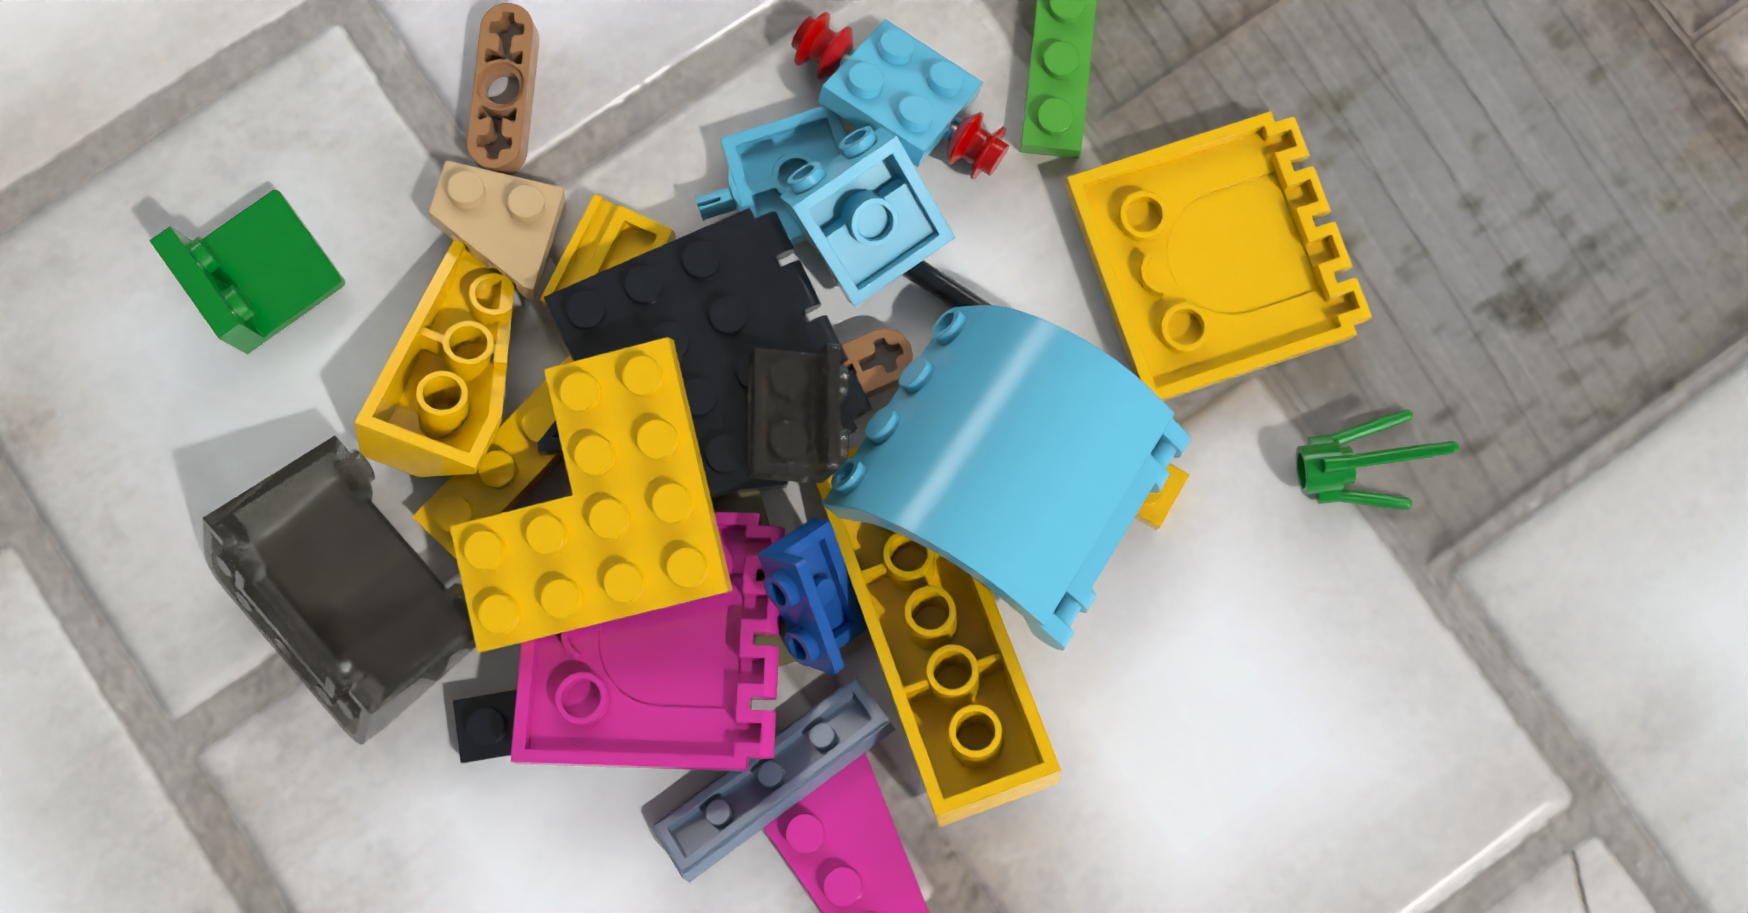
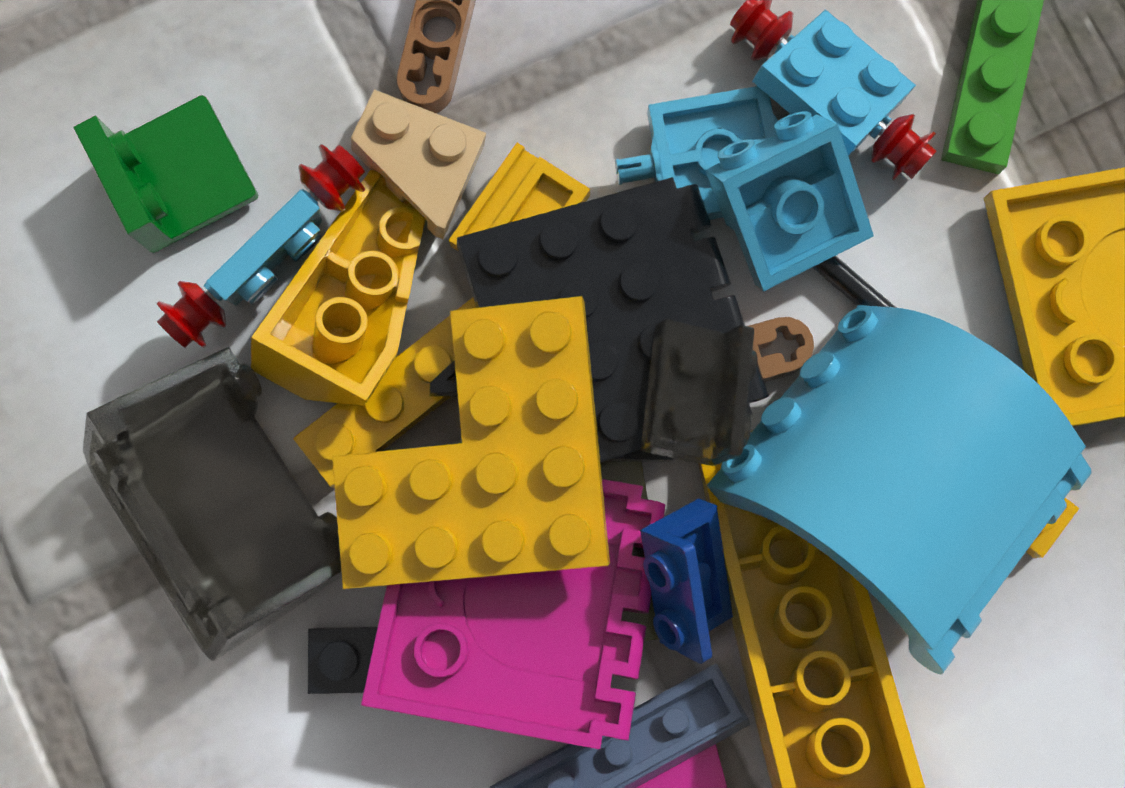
camera: 10 degrees right, 0 degrees up
(345, 356) = (250, 269): none -> plate

